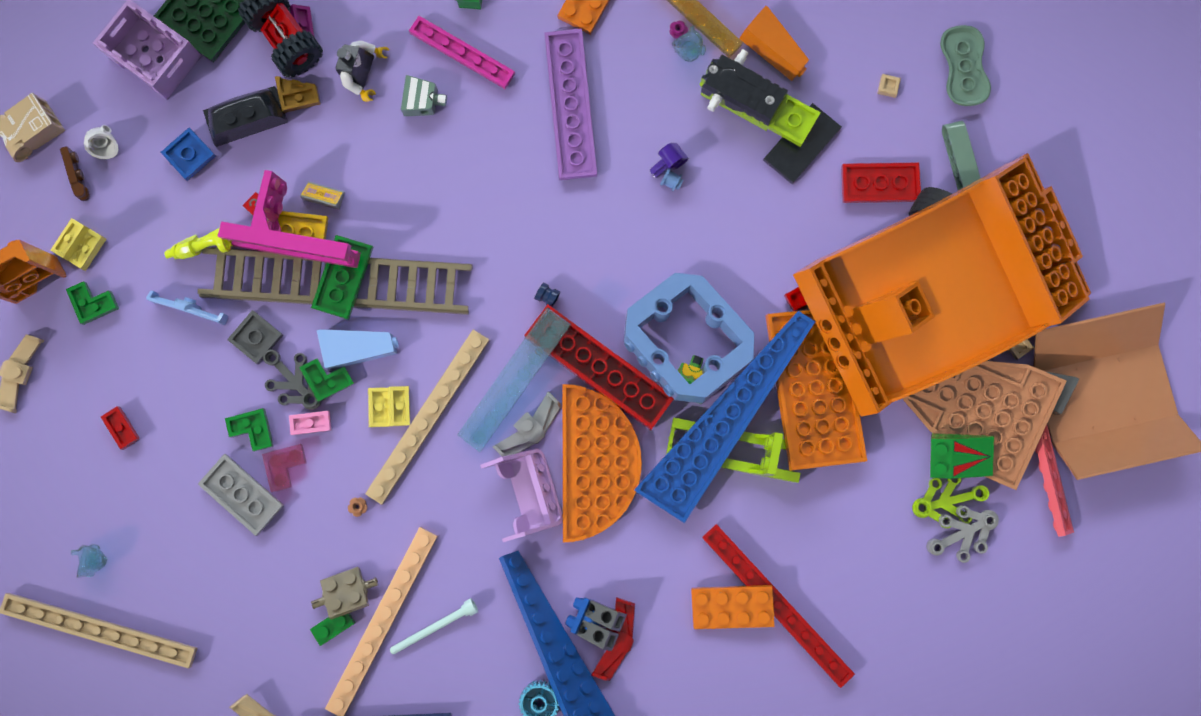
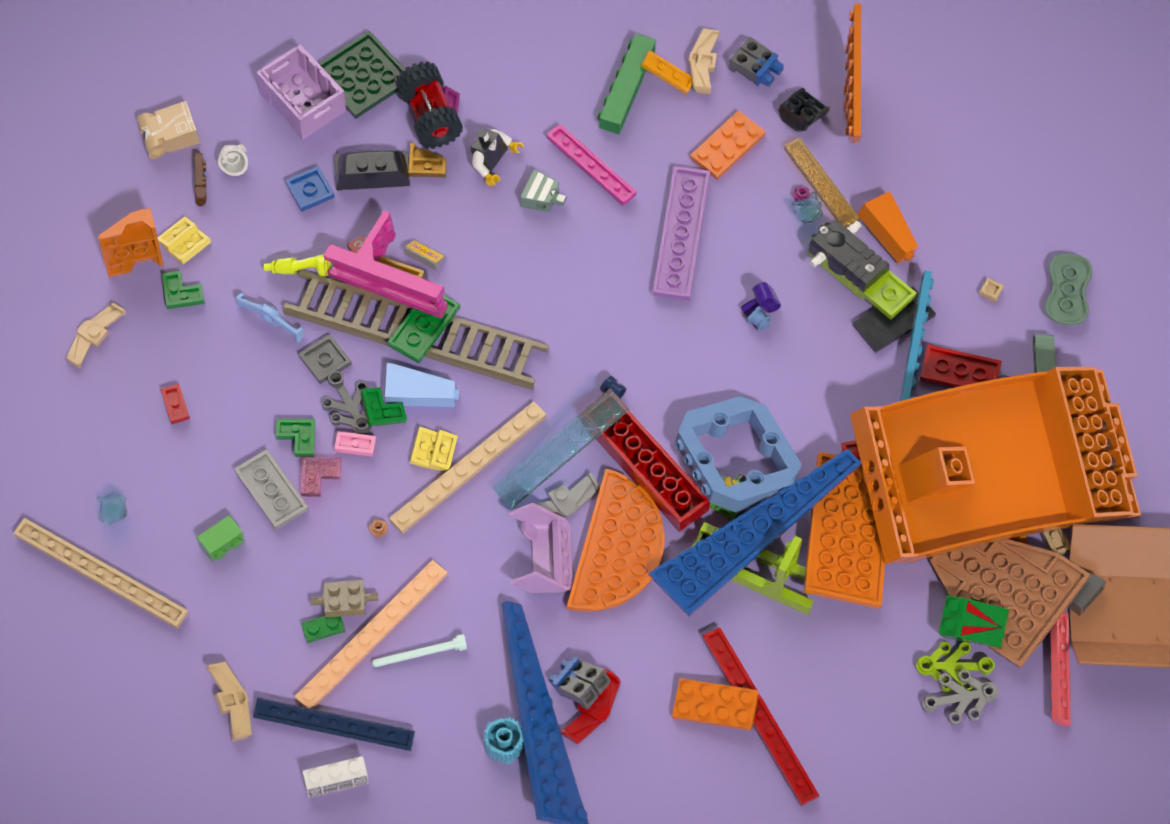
camera: 10 degrees right, 20 degrees down
(205, 562) = (220, 538): none -> bright green brick
(832, 173) = (917, 334): none -> dark azure plate

